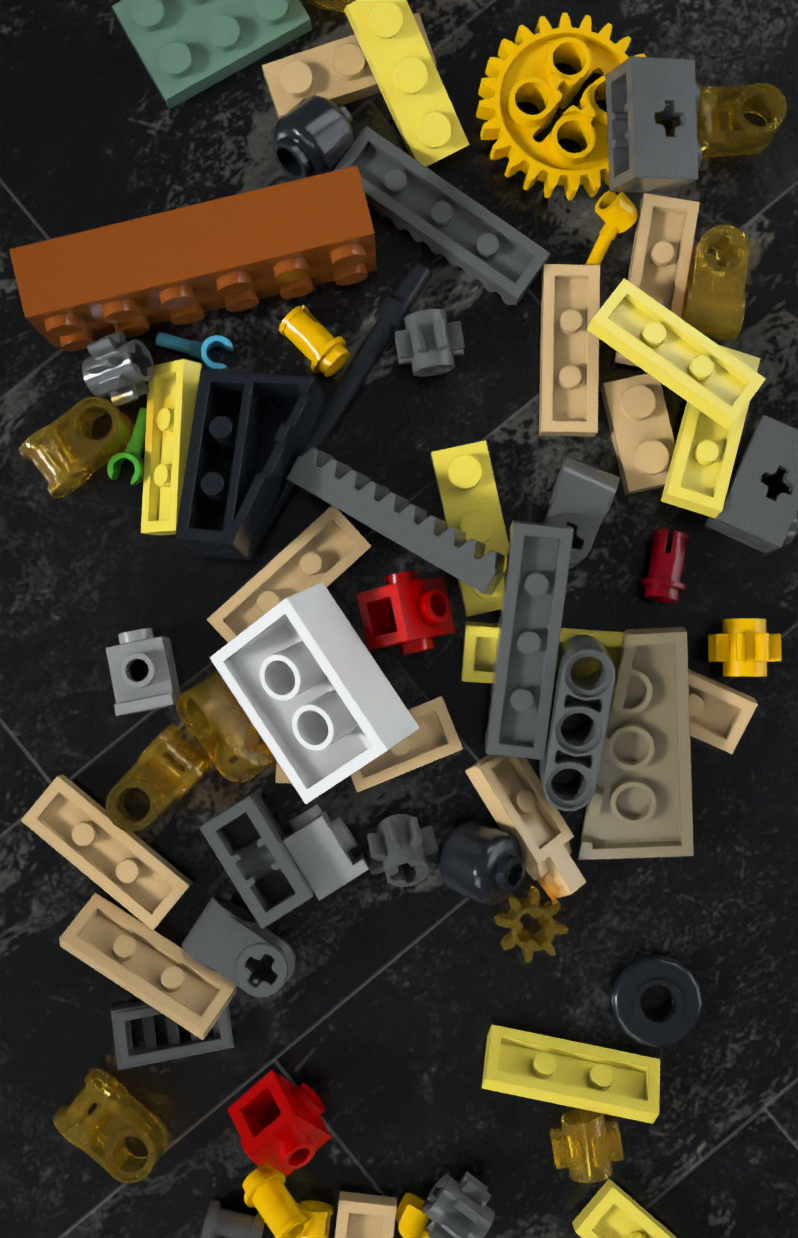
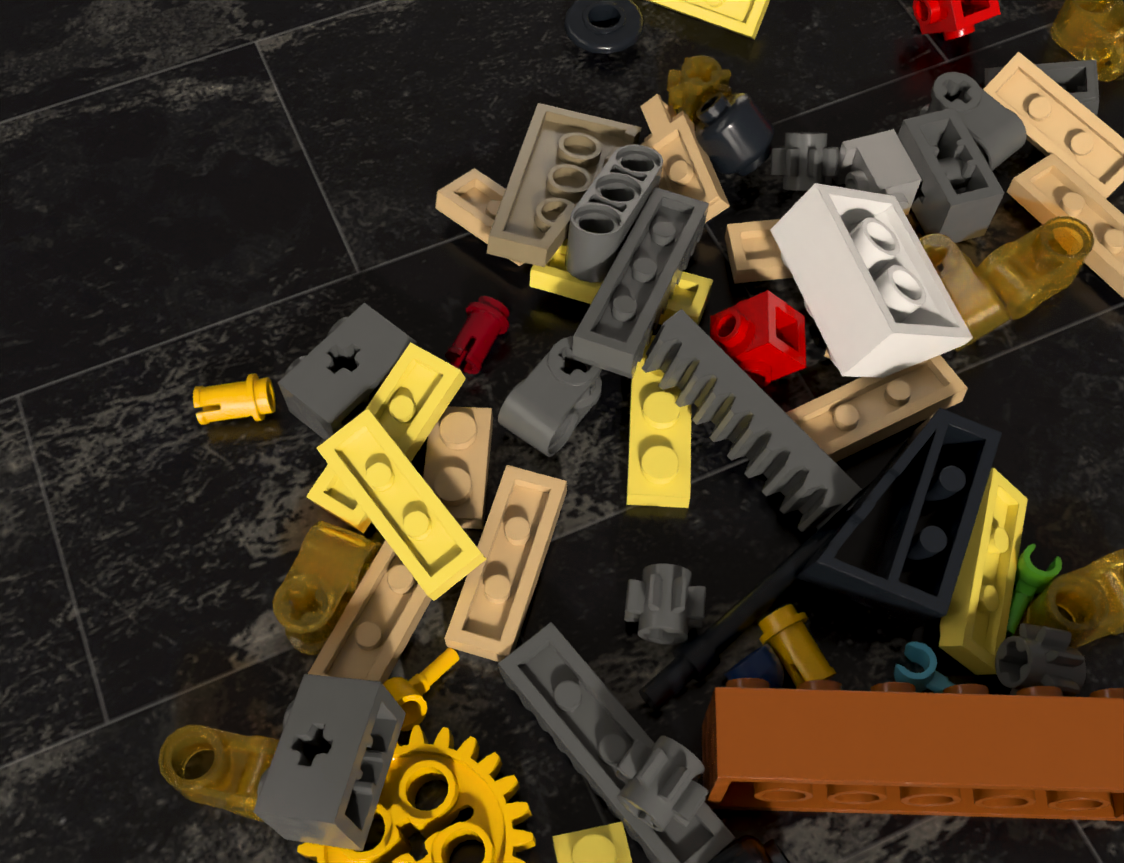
camera: 165 degrees left, 25 degrees down
(161, 684) = (1039, 359): light grey brick -> none
(343, 311) = (760, 664): none -> dark blue hinge
(398, 174) = (661, 783): none -> dark grey gear
(744, 647) = (430, 243): yellow gear -> none

